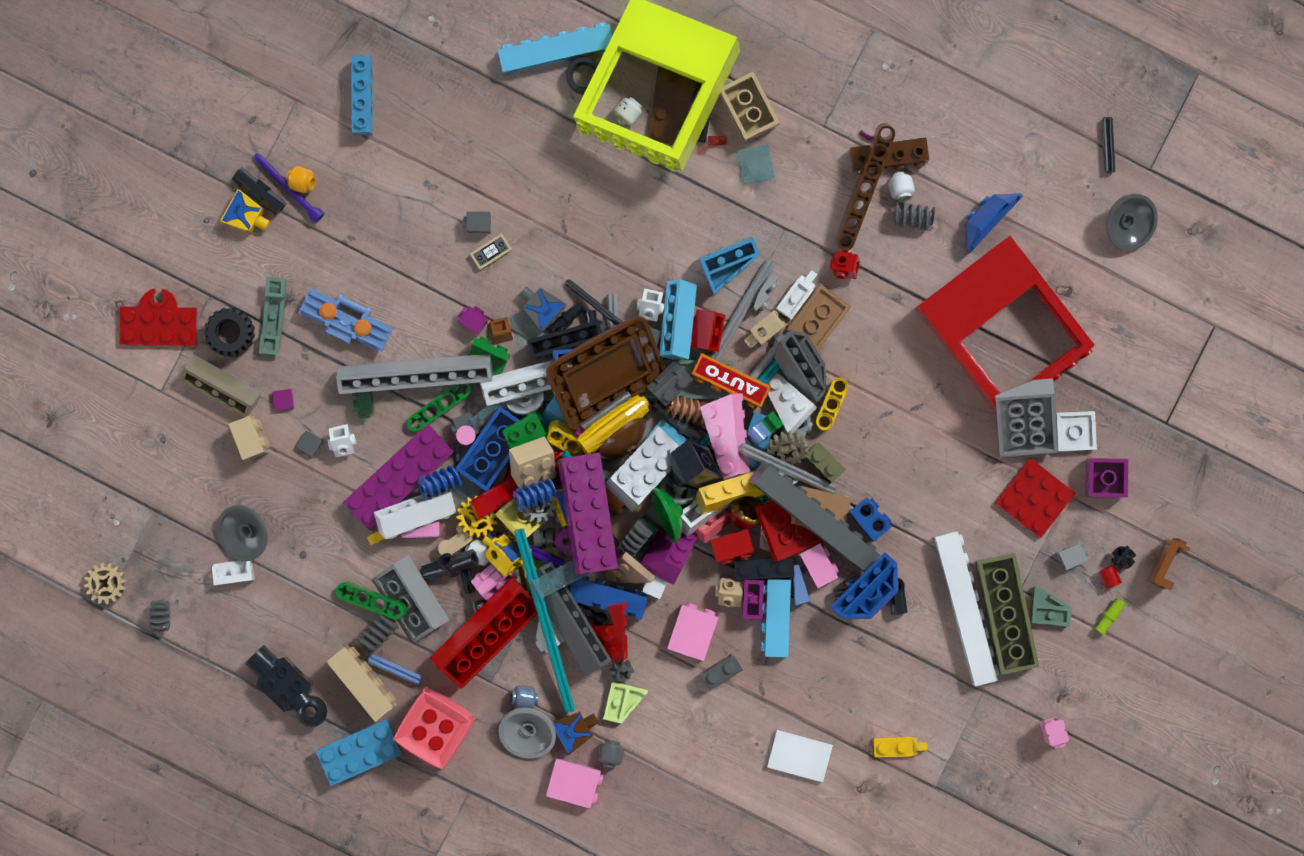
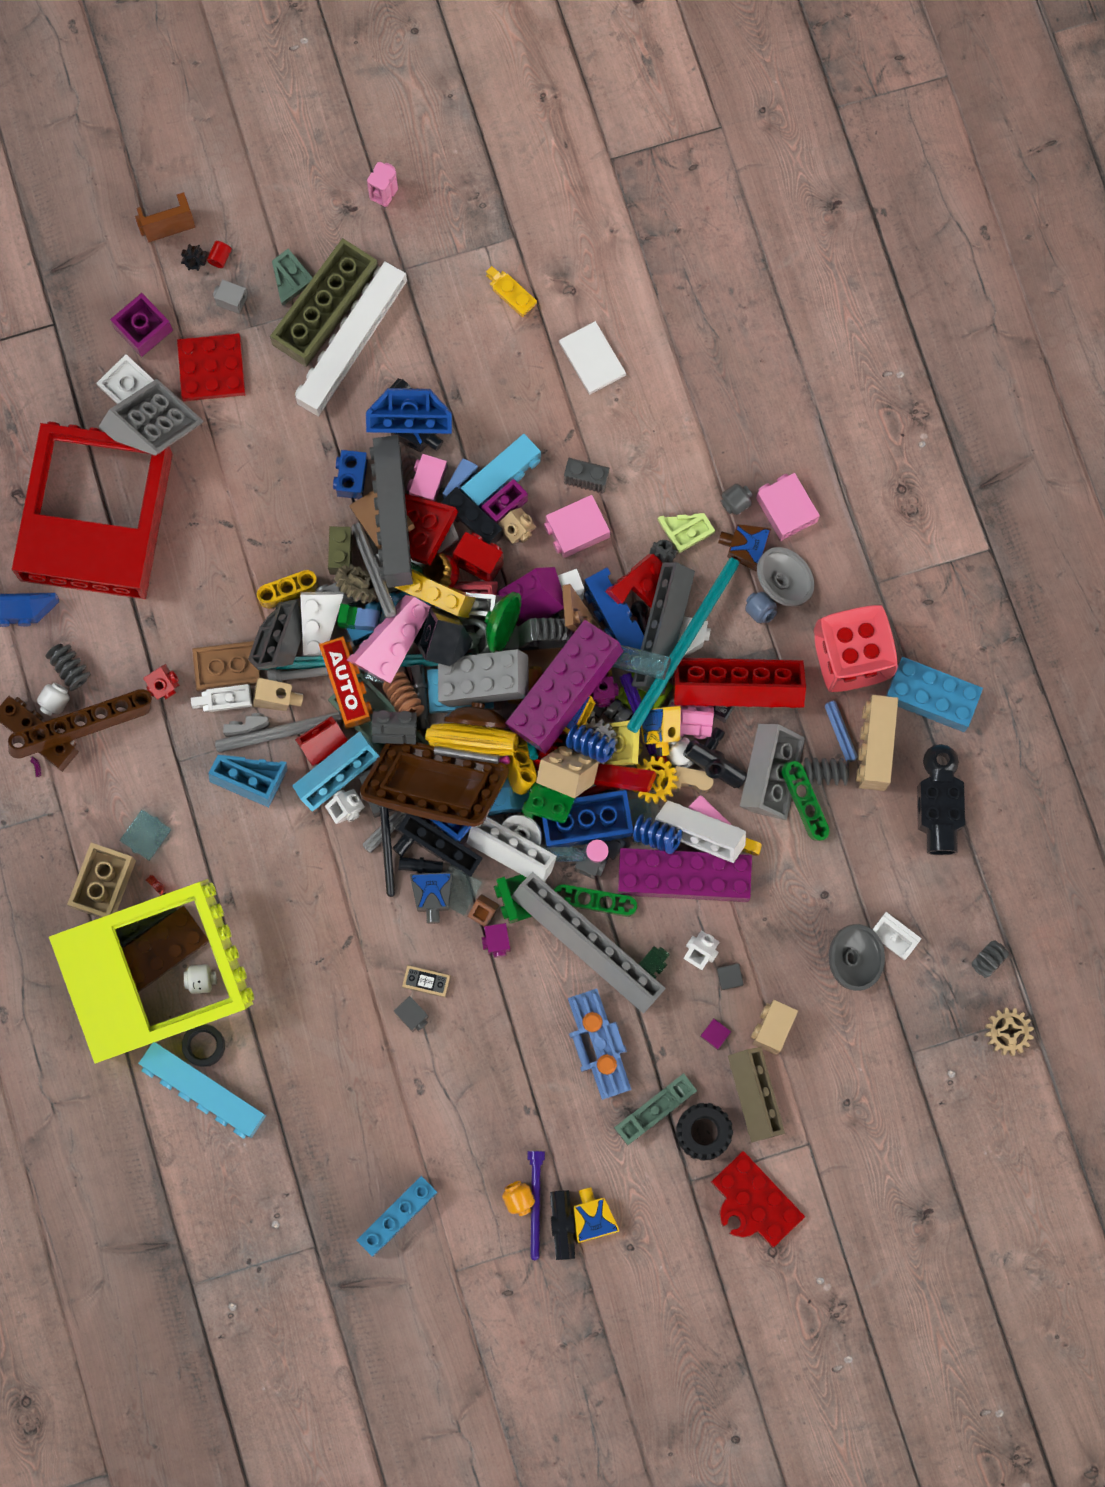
camera: 135 degrees left, 10 degrees down
(1110, 616) = (250, 227): lime pin -> none

